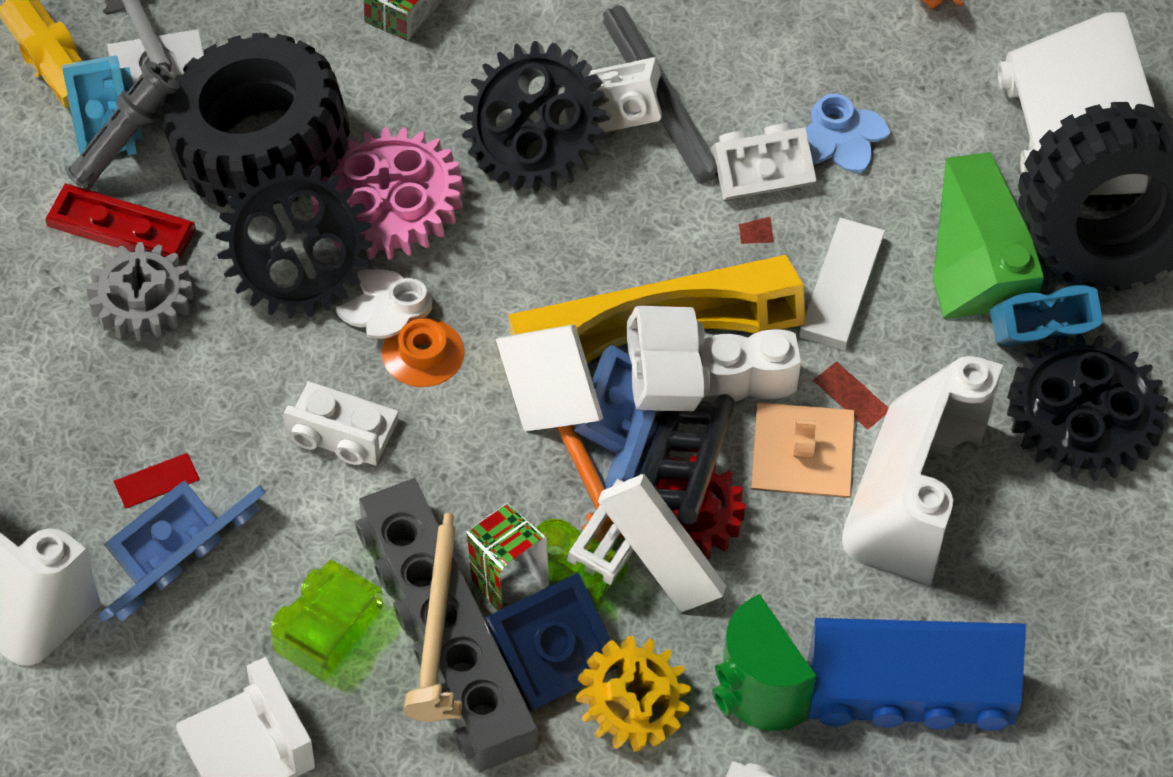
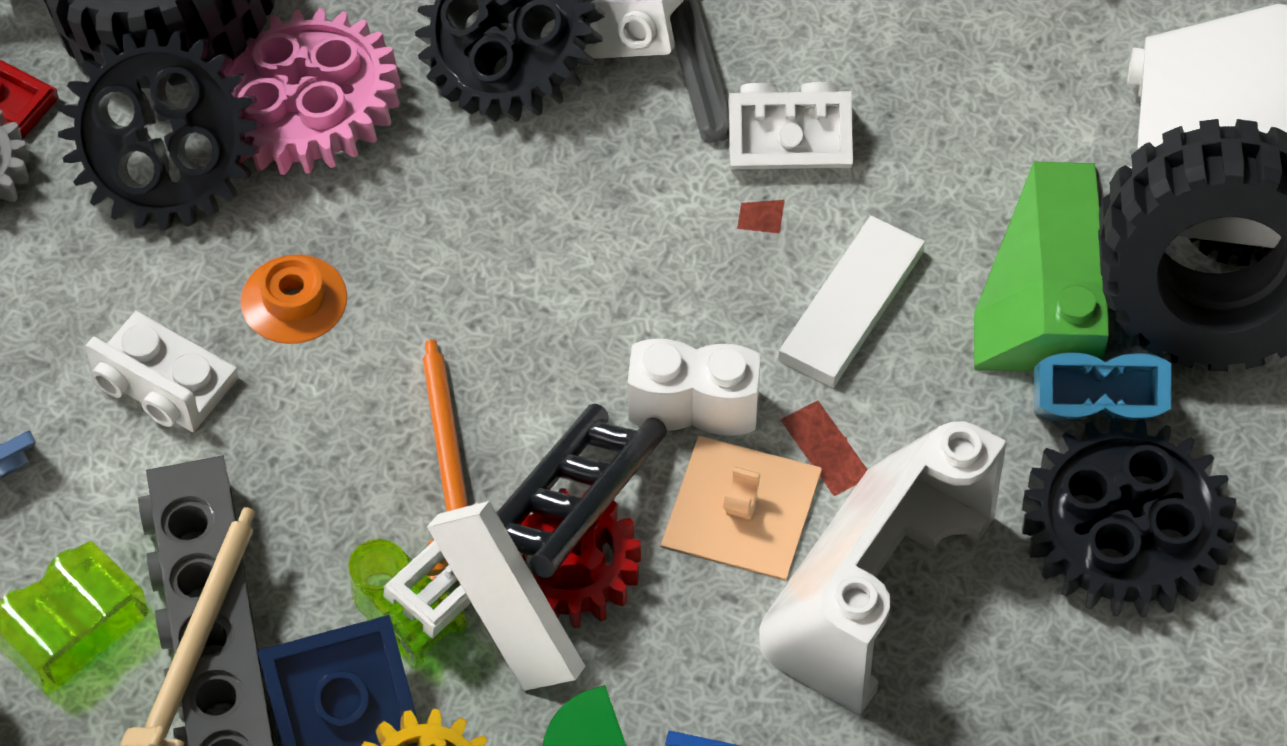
camera: 15 degrees right, 0 degrees up
(386, 303) = (265, 229): white plate -> none
(499, 541) = (300, 551): piece -> none
(549, 378) = (426, 358): white piece -> none
(623, 427) = (523, 401): medium blue bracket -> none
(666, 358) = (581, 358): white brick -> none
(737, 297) = (710, 297): yellow arch -> none
(846, 138) = (906, 116): light blue plate -> none

